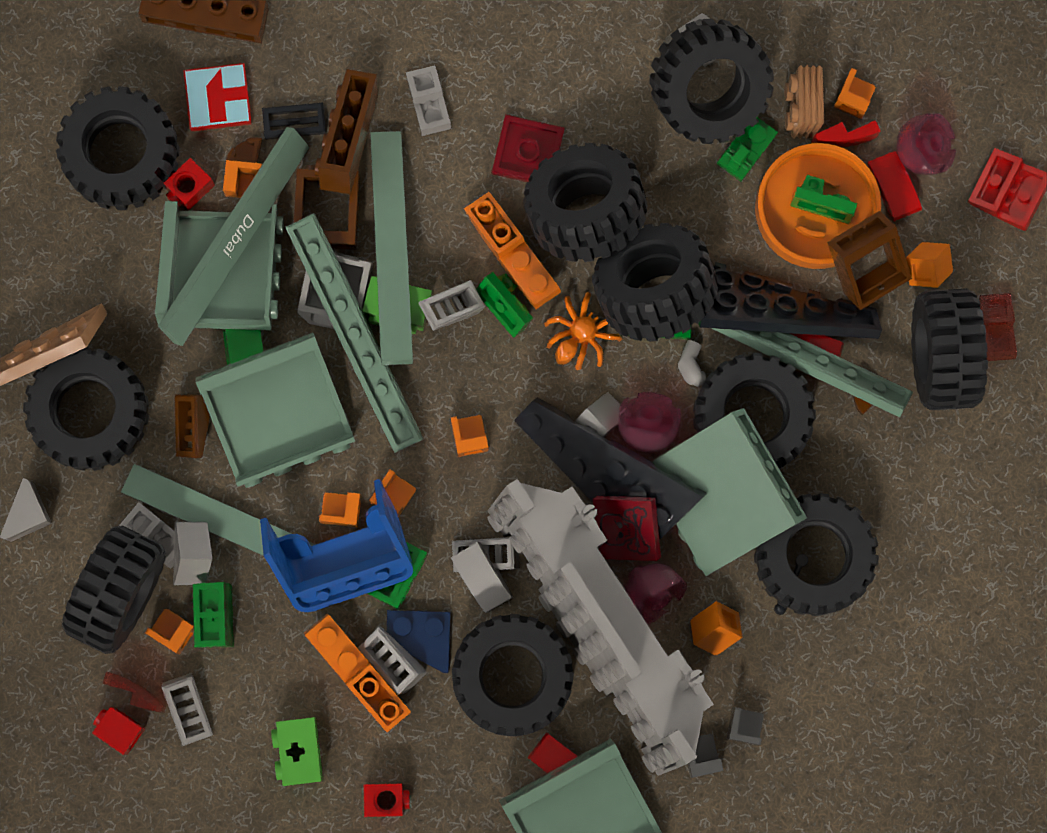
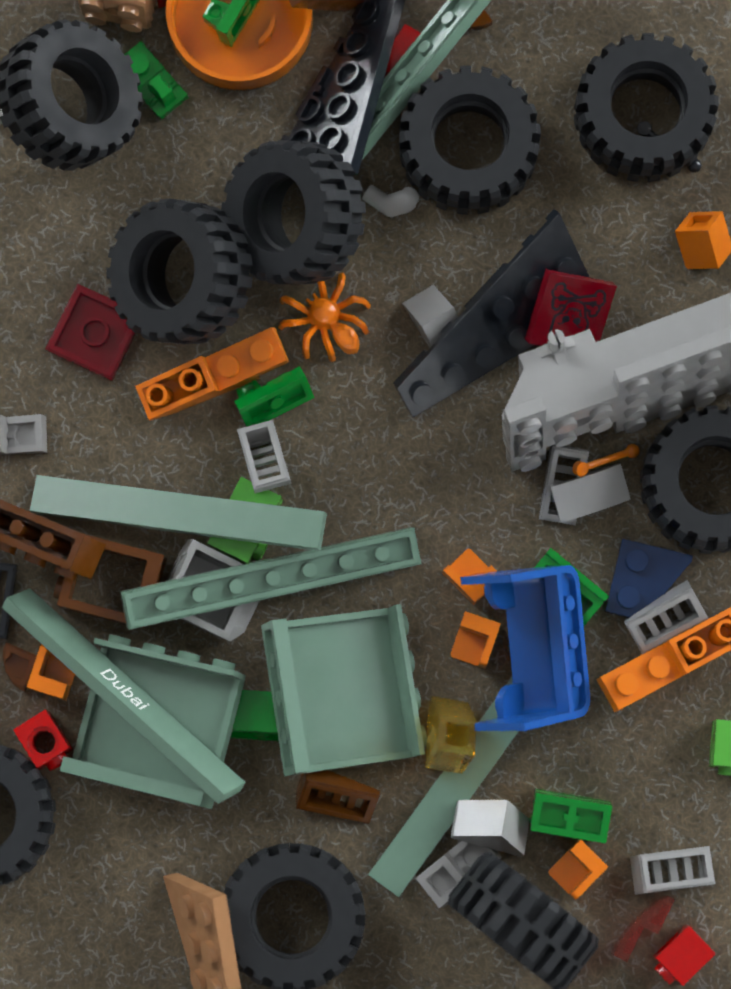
camera: 70 degrees left, 0 degrees up
(258, 502) = (450, 735): none -> clear yellow slope
(469, 435) = (419, 472): orange panel -> none
(498, 565) = (581, 468): none -> orange hinge
(649, 422) = (452, 260): clear pink cylinder -> none
(653, 589) = (644, 296): clear pink cylinder -> none
(744, 490) = (561, 165): sand green panel -> none

